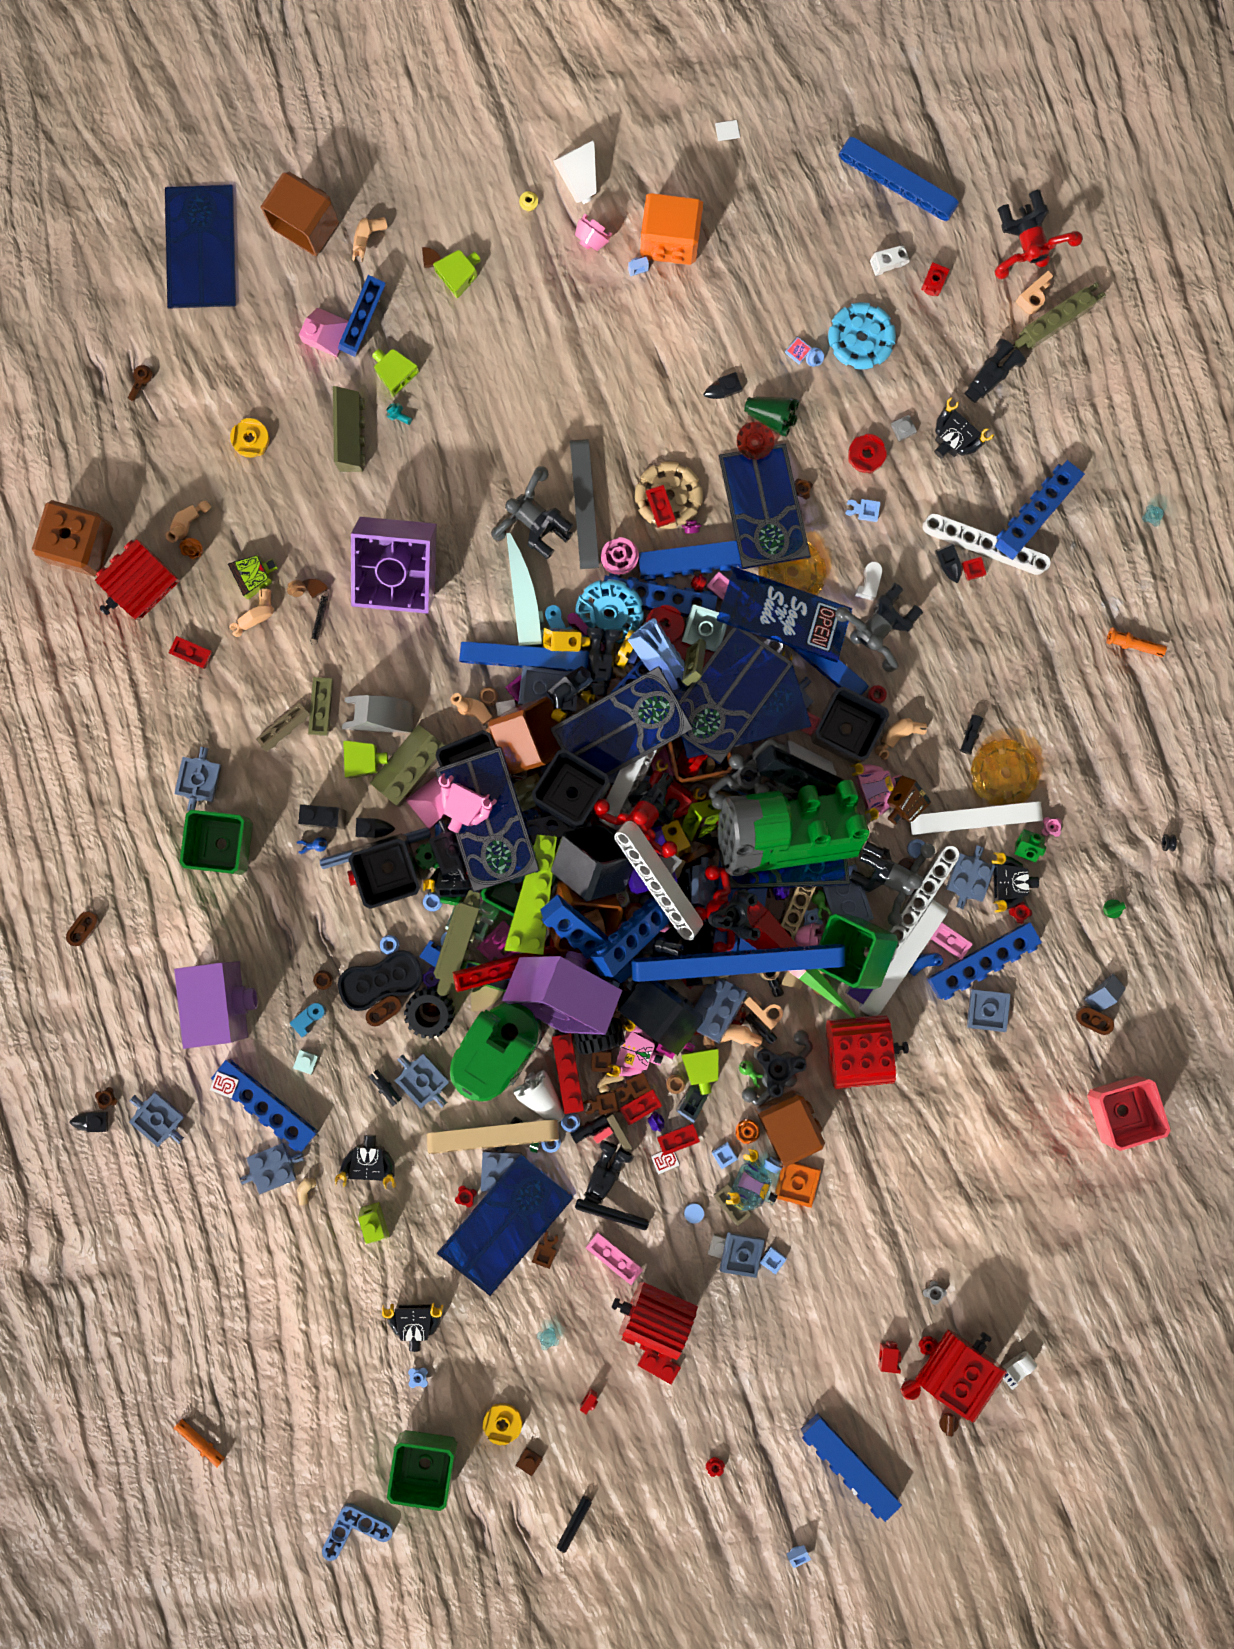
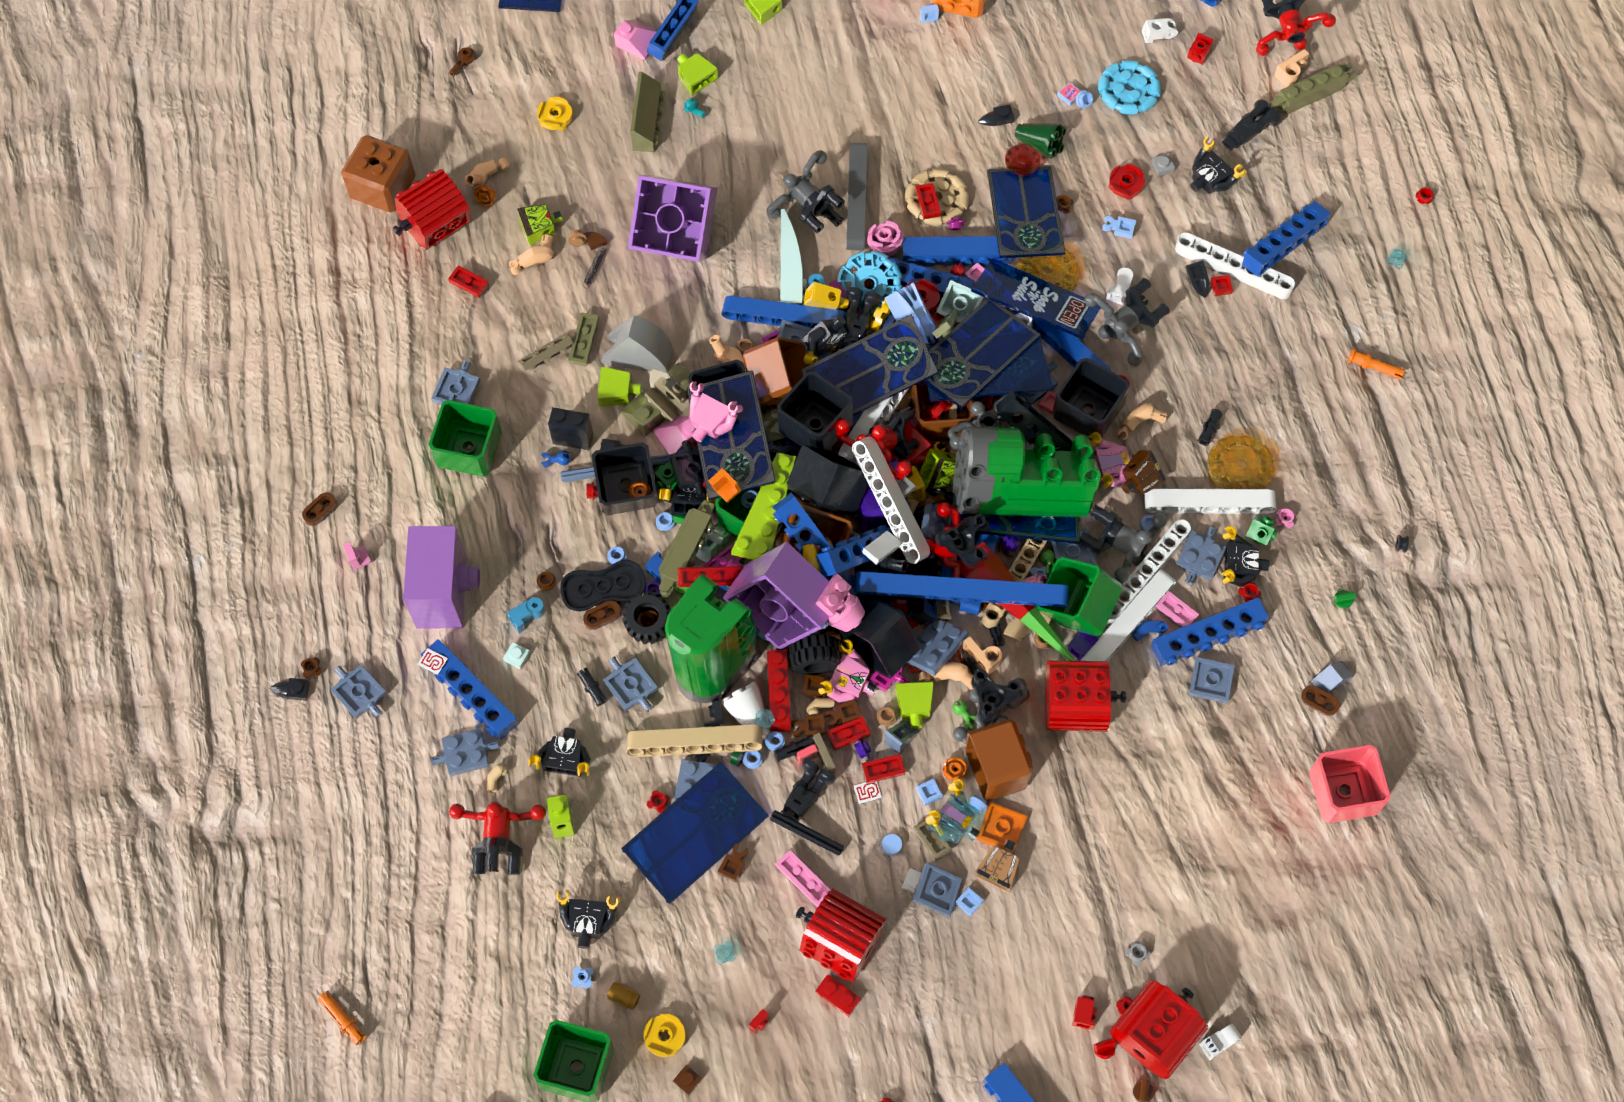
camera: 10 degrees right, 20 degrees down
(129, 977) = (357, 556): none -> bright pink bracket
(315, 1261) = (496, 835): none -> wheel
(398, 883) = (639, 486): none -> orange plate
(414, 774) = (661, 383): none -> dark tan piece
(459, 1391) = (623, 995): none -> pearl gold piece
(489, 880) = (724, 485): none -> orange panel
(510, 1107) = (715, 711): none -> black bracket
(558, 1115) = (769, 718): none -> clear light blue plate
(584, 959) = (809, 553): none -> yellow cone
(612, 997) = (833, 595): none -> bright pink plate
(629, 1010) = (848, 614): none -> bright pink cone
(655, 932) = (881, 547): none -> white tile
(798, 1226) = (999, 866): none -> medium nougat torso
(1180, 432) = (1426, 192): none -> red plate

